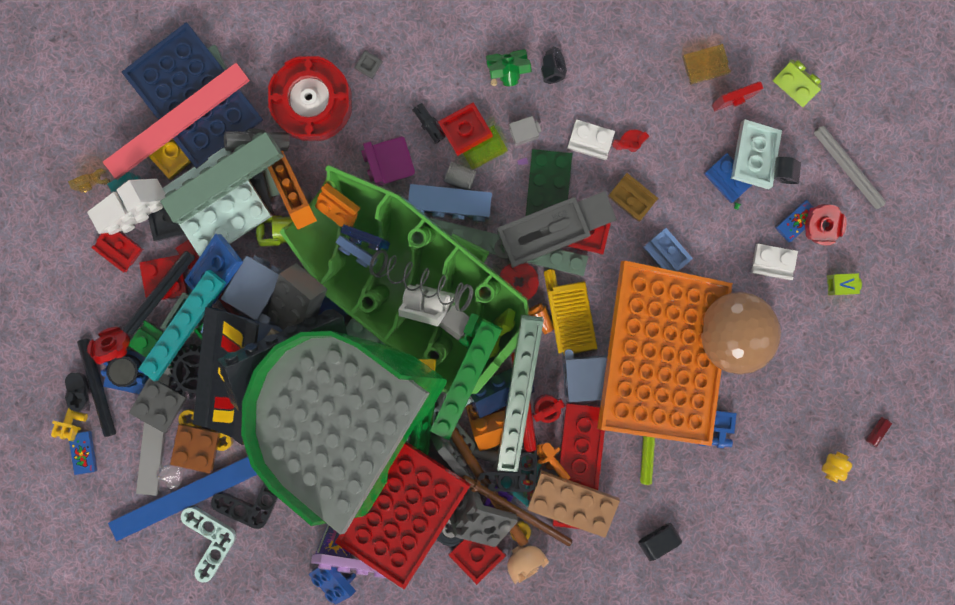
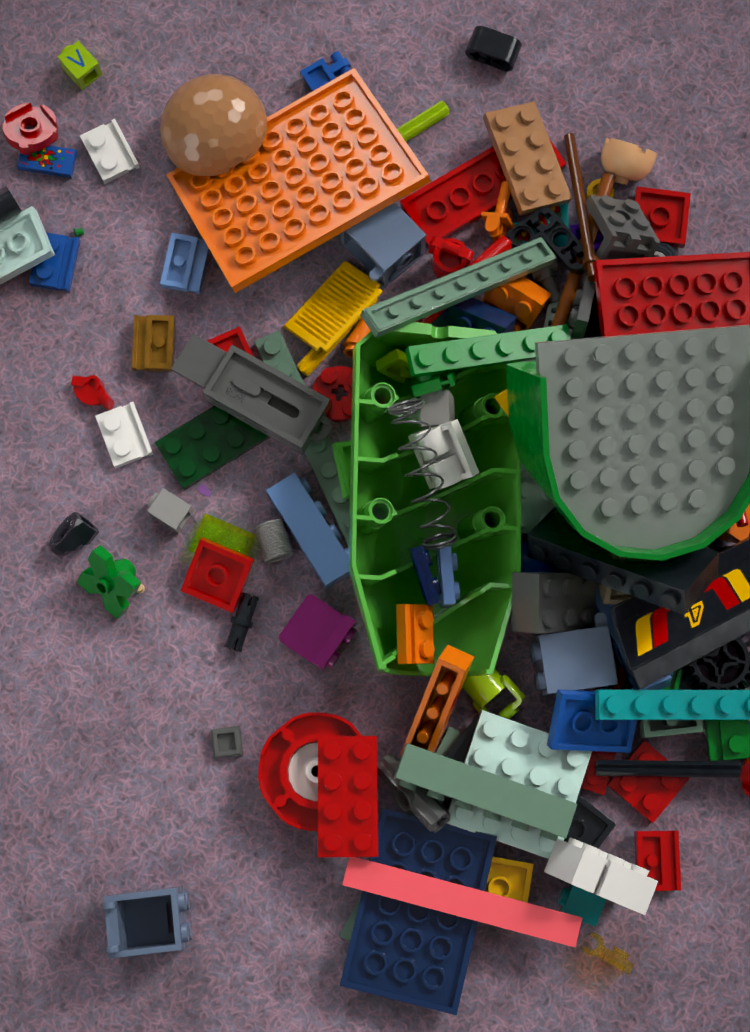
camera: 125 degrees left, 10 degrees down
(280, 101) = (347, 796): none -> red plate

